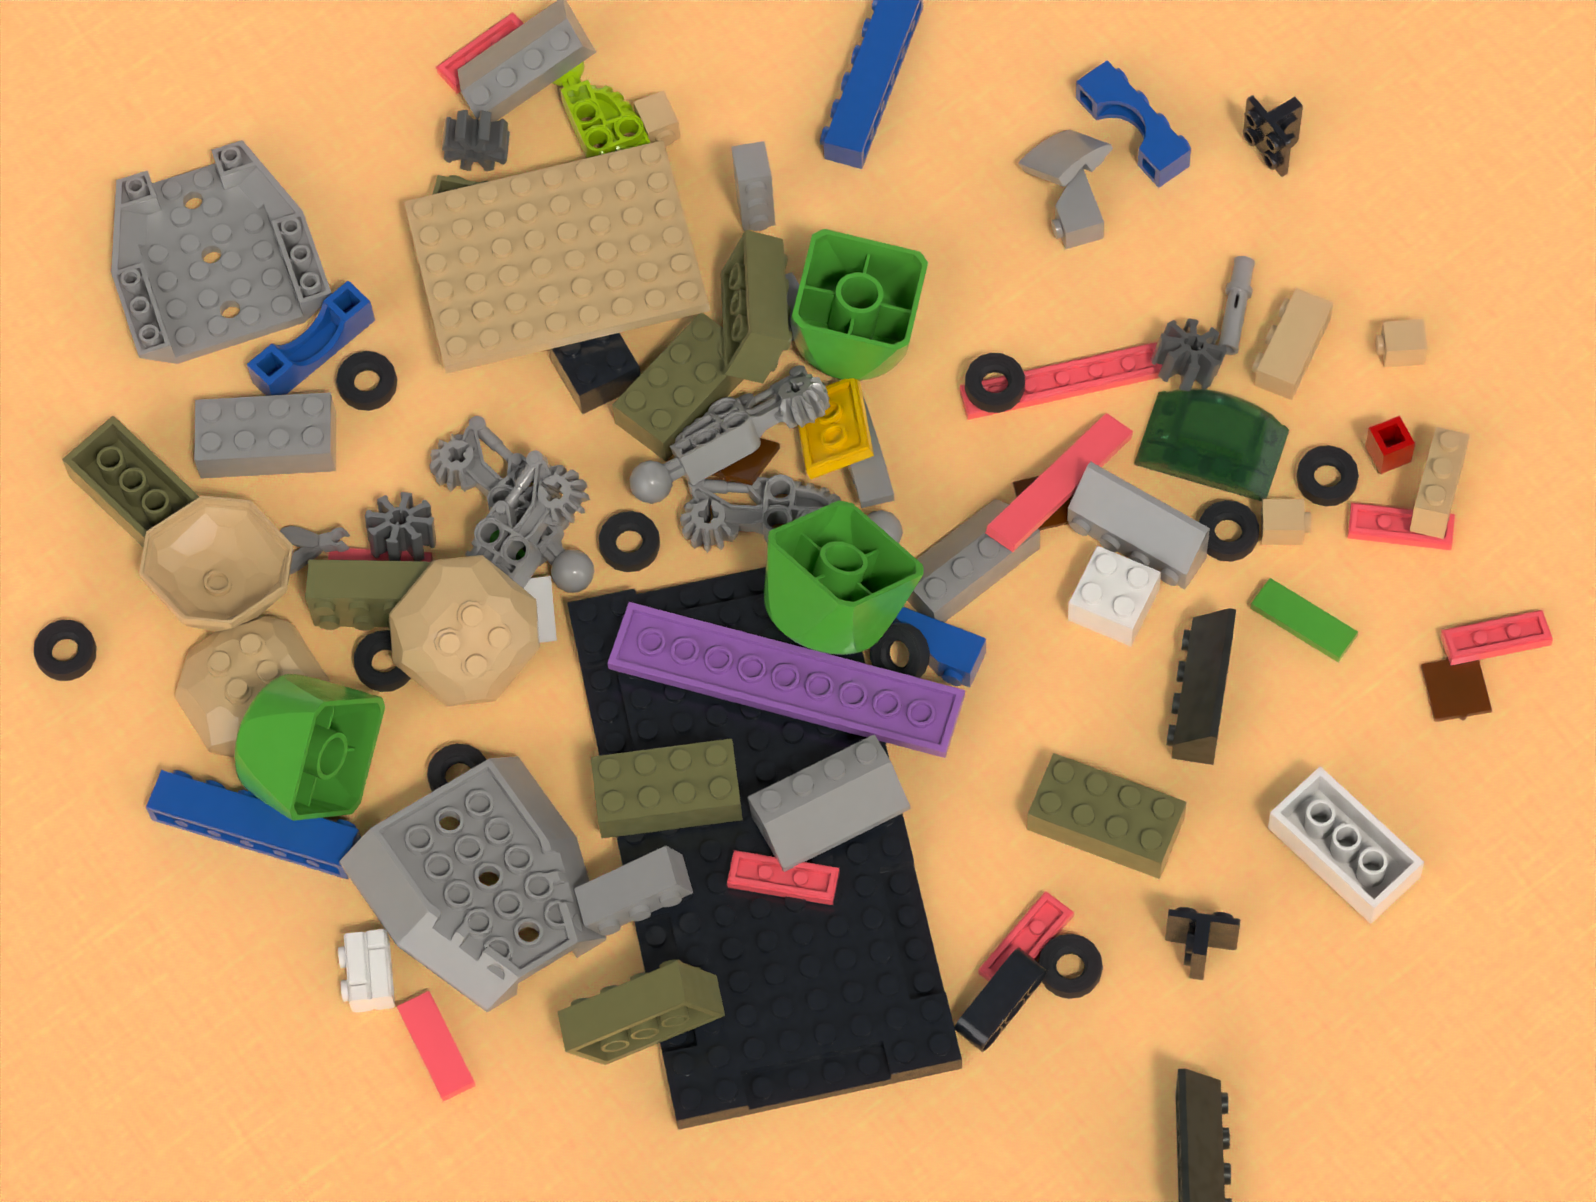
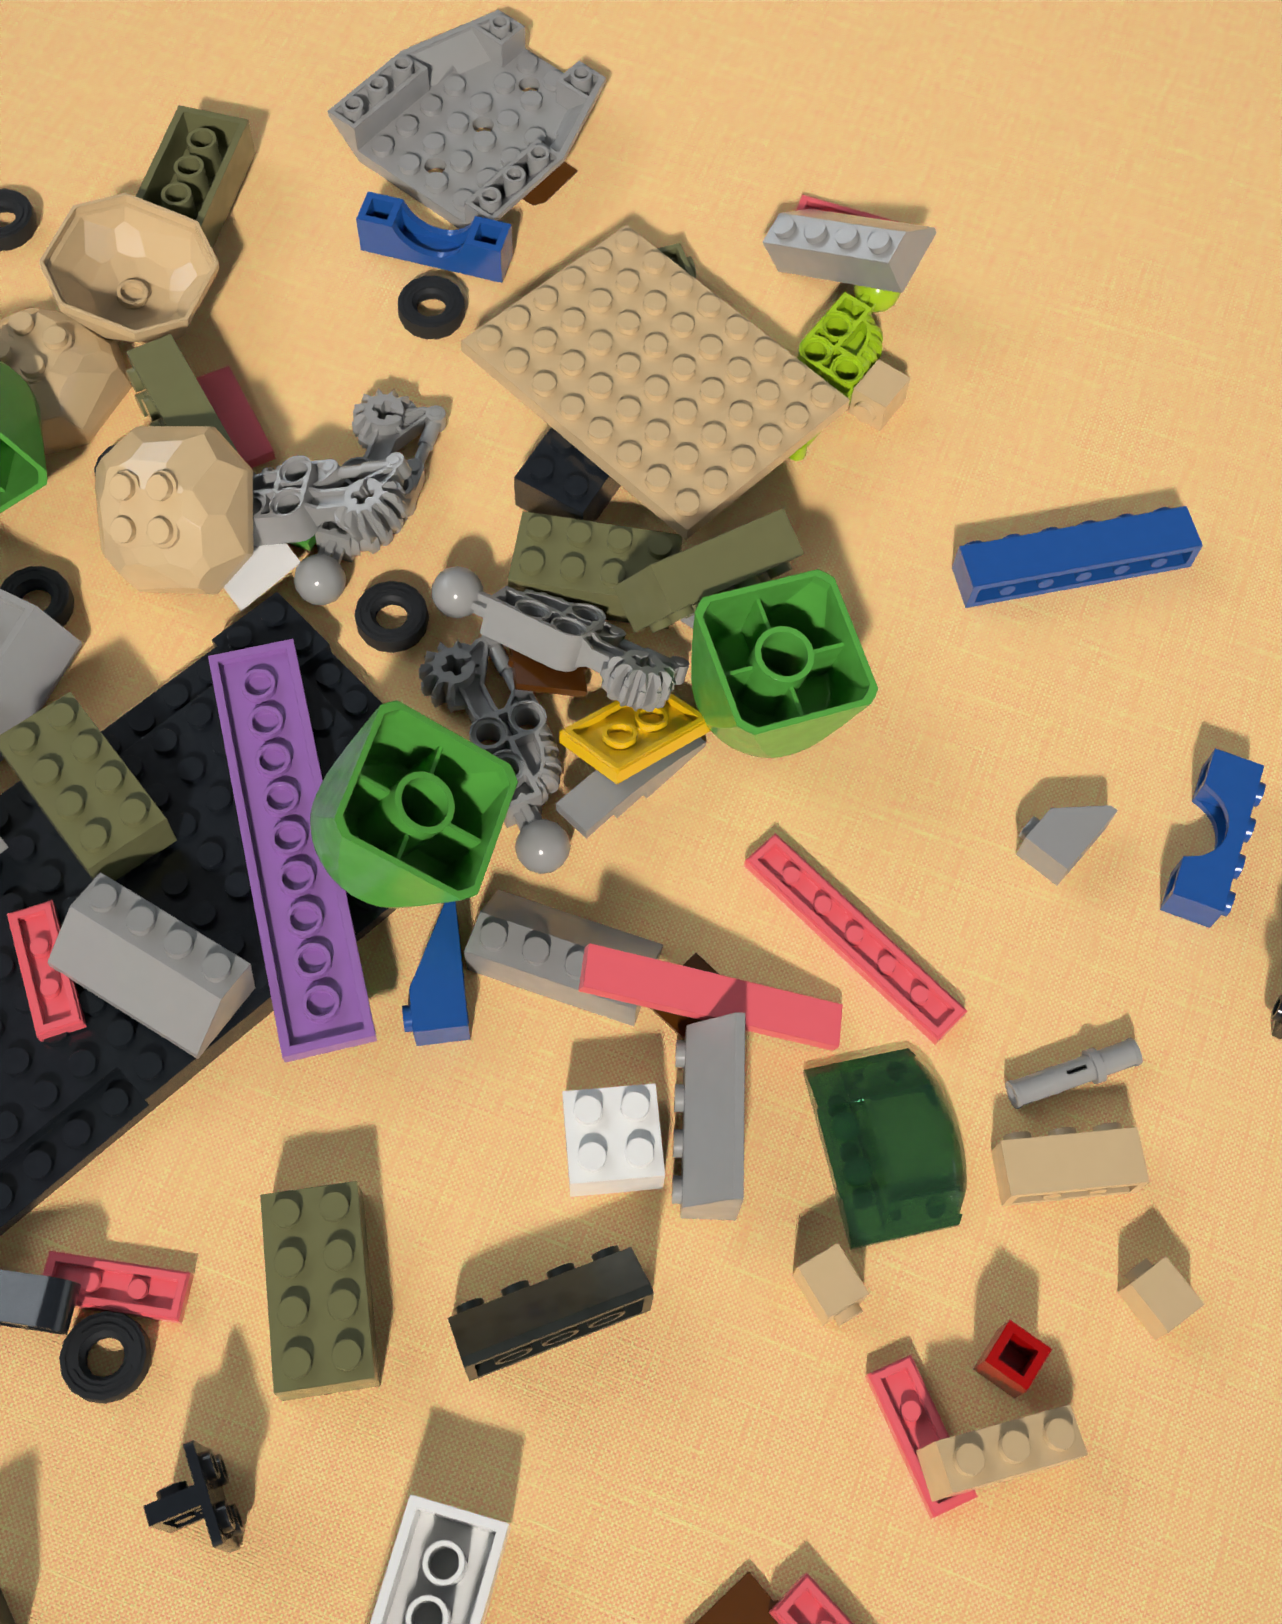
camera: 50 degrees right, 0 degrees up
(265, 435) = (315, 254): light grey brick -> none
(312, 544) = (221, 352): light grey piece -> none
(400, 528) = (276, 408): dark grey gear -> none
(475, 140) = (740, 254): dark grey gear -> none
(753, 186) = (856, 502): light grey brick -> none
(914, 641) = (412, 954): black tyre -> none
(1000, 364) = (803, 840): black tyre -> none
(1063, 156) = (1116, 782): light grey slope -> none
(1188, 354) = (970, 1053): dark grey gear -> none
(1243, 517) = (782, 1197): black tyre -> none
(1304, 620) = (721, 1386): bright green tile -> none
(1321, 494) = (952, 1289): black tyre -> none

